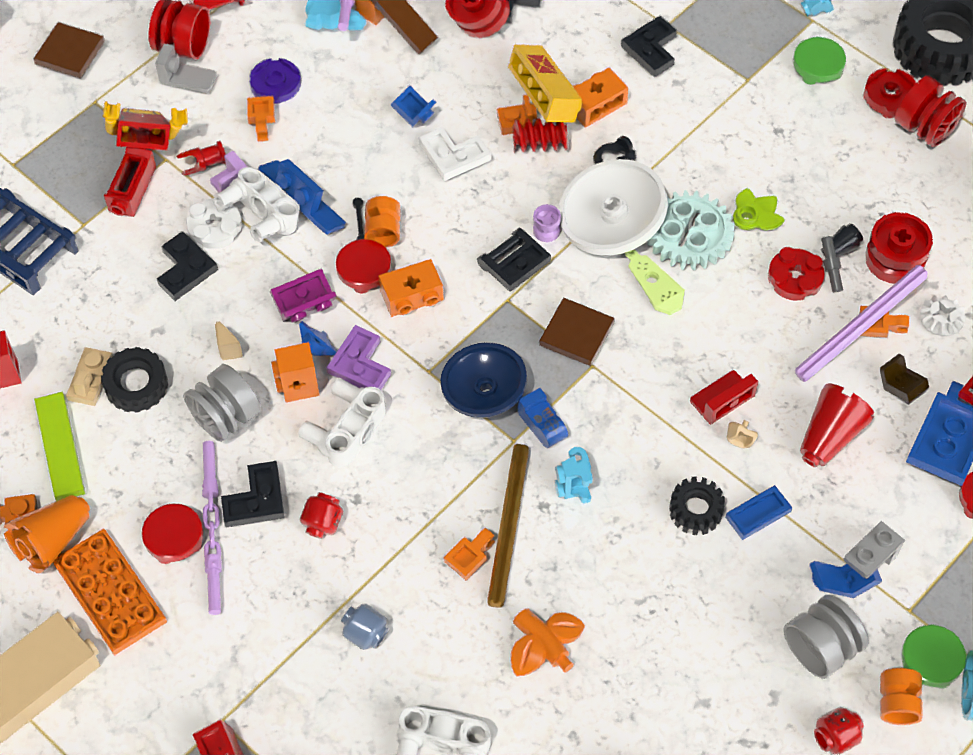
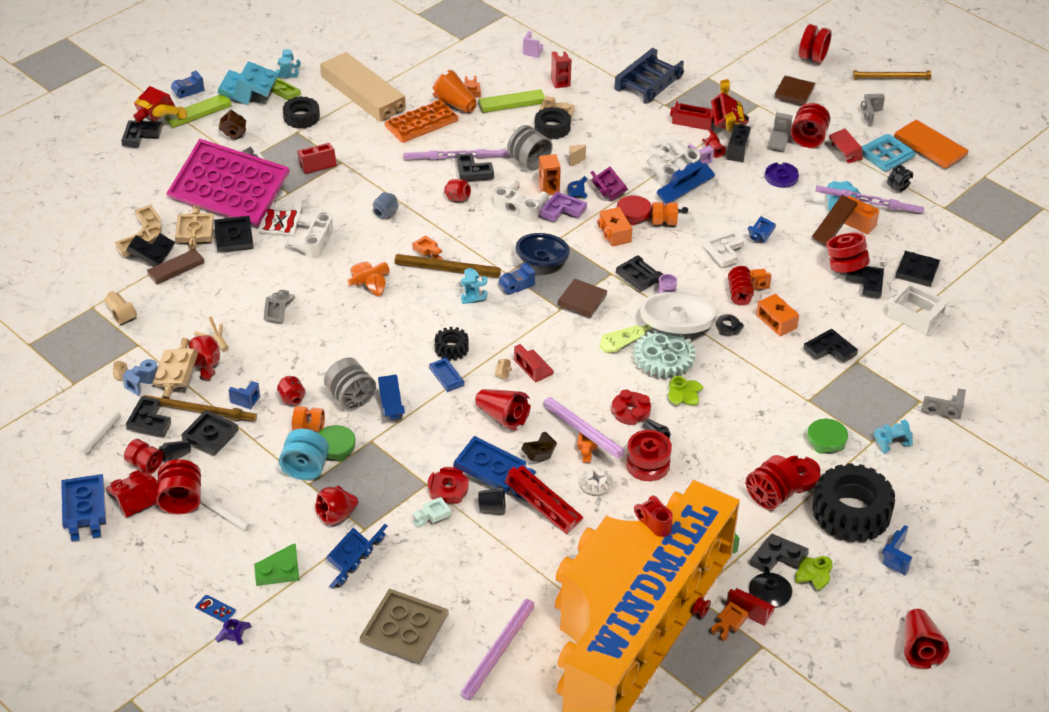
camera: 90 degrees right, 15 degrees down
(172, 533) = (453, 139): red tile -> none
(190, 266) = (632, 144): black plate -> none
(209, 123) = (738, 143): none -> black brick
(260, 112) = (750, 165): orange plate -> none
(544, 83) = (778, 279): yellow brick -> none
(832, 264) = (635, 421): dark grey bar -> none
(874, 549) = (408, 412): light grey bracket -> none

